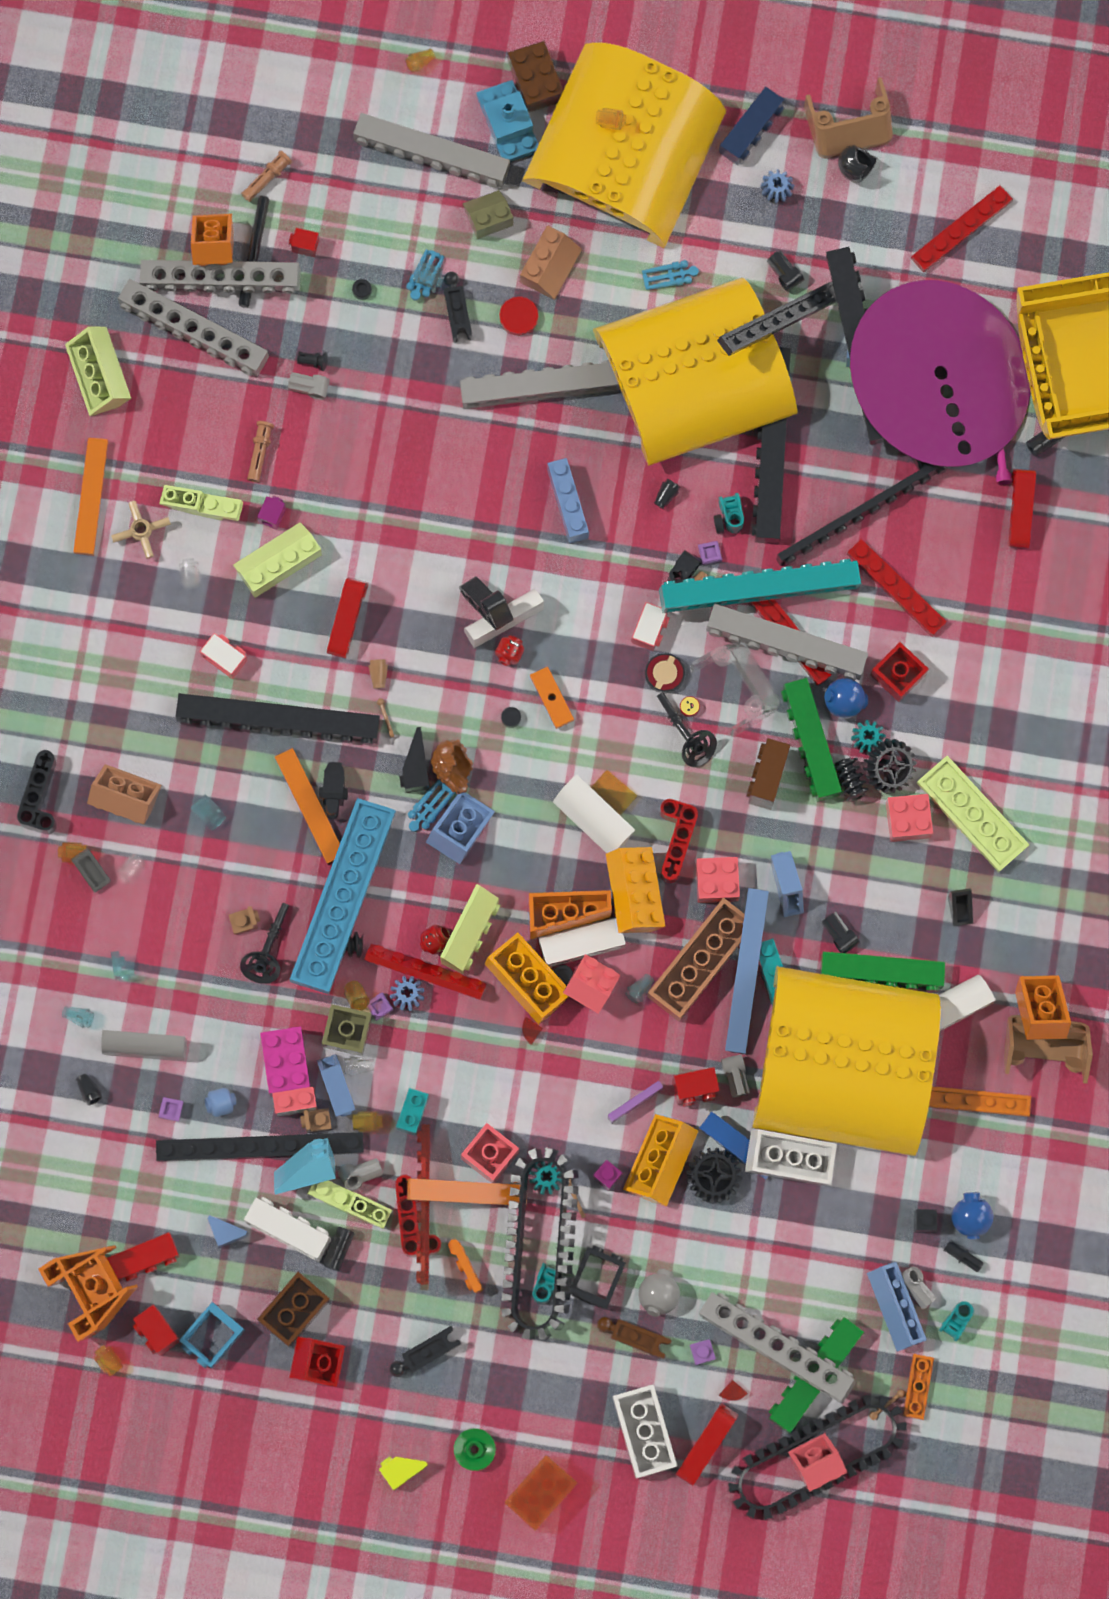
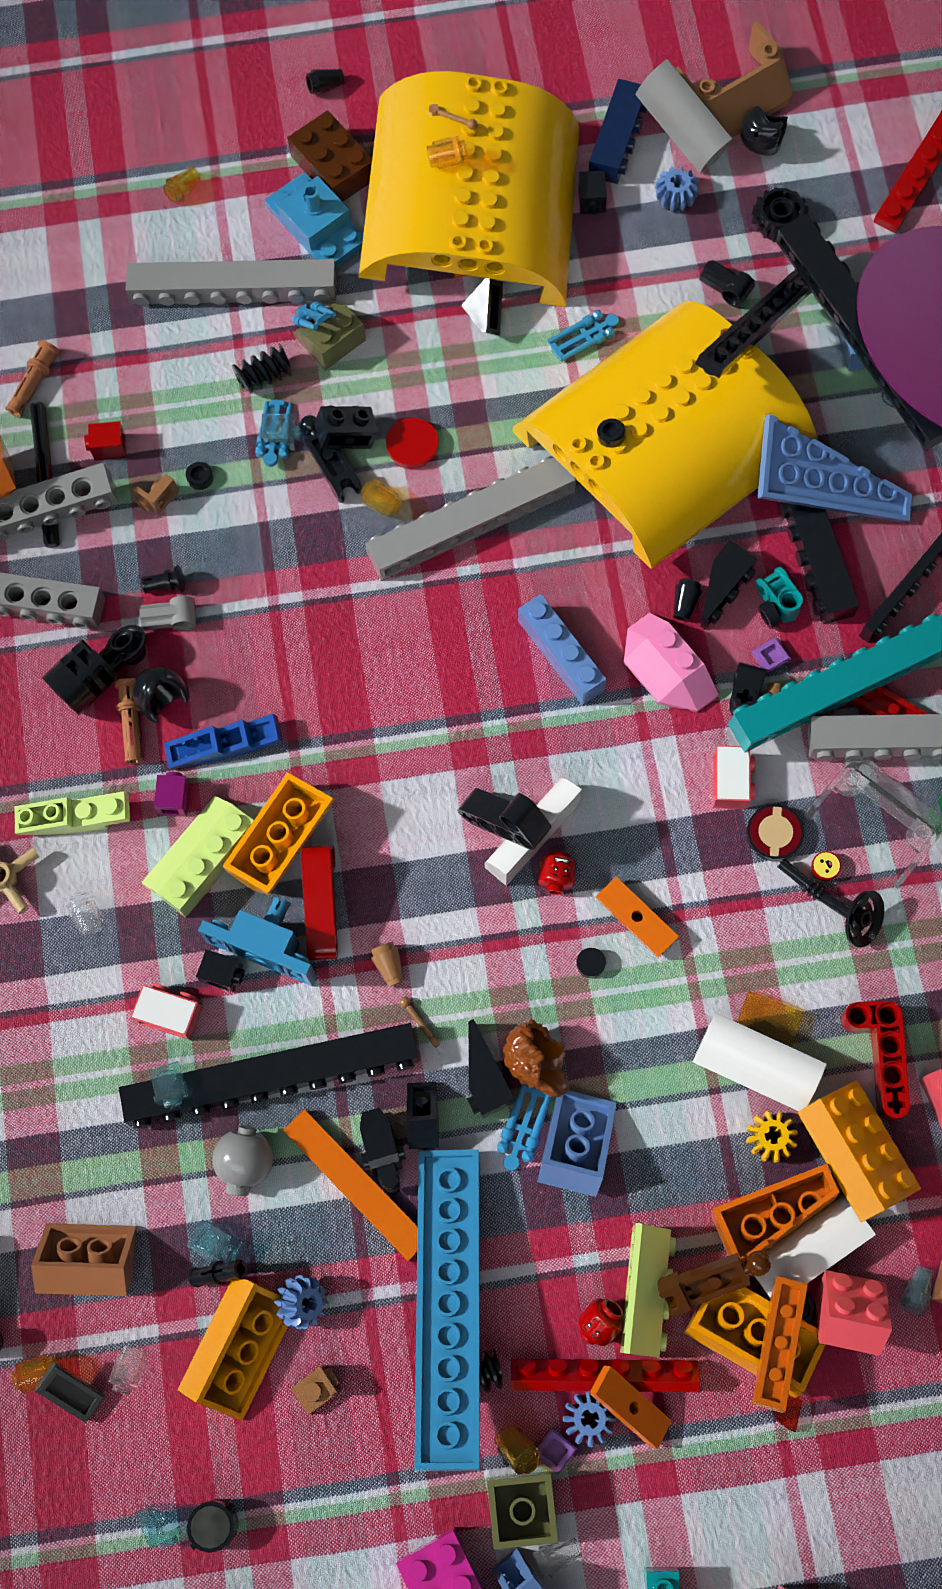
camera: 10 degrees left, 5 degrees down
(154, 977) = (212, 1525): none -> pearl dark grey piece
(204, 878) = (235, 1350): none -> light orange slope
(205, 829) = (217, 1273): none -> black pin
(211, 702) = (168, 1085): none -> clear light blue bracket
(240, 409) = (86, 675): none -> black cylinder
(243, 765) = (242, 1160): none -> light grey brick
(252, 864) = (301, 1302): none -> medium blue gear
(262, 957) = (363, 1442): black dish -> none
(267, 641) = (220, 971): none -> black brick
(285, 435) = (156, 689): none -> black piece
(300, 631) = (262, 942): none -> dark azure brick
(317, 487) = (222, 743): none -> blue slope
(330, 295) = (159, 496): none -> medium nougat bracket
(333, 563) = (277, 834): none -> light orange slope
(367, 777) = (422, 1115): none -> black slope
(431, 226) = (262, 369): none -> black piece
(439, 1001) = (630, 1407): none -> orange tile
(475, 290) = (345, 427): none -> black brick
(482, 350) = (380, 498): none -> clear yellow brick
(487, 194) = (317, 312): none -> dark azure piece
(510, 934) = (710, 1281): none -> reddish brown plate
(538, 984) = (779, 1344): none -> orange plate
(550, 263) = (428, 366): nougat slope -> none
(551, 10) = (323, 80): none -> black cone
(591, 870) = (780, 1145): none -> yellow gear
(605, 233) = (485, 306): none -> slope
(615, 80) = (434, 110): none -> medium nougat hinge
(635, 536) = (667, 665): none -> bright pink wedge
(649, 365) = (611, 433): none -> black tile
(700, 486) = (727, 574): none -> black slope
(714, 168) = (592, 192): none -> black brick
(781, 437) = (818, 477): none -> medium blue wing
(799, 134) = (683, 116): none -> light grey brick
(843, 221) = (775, 202): none -> black gear

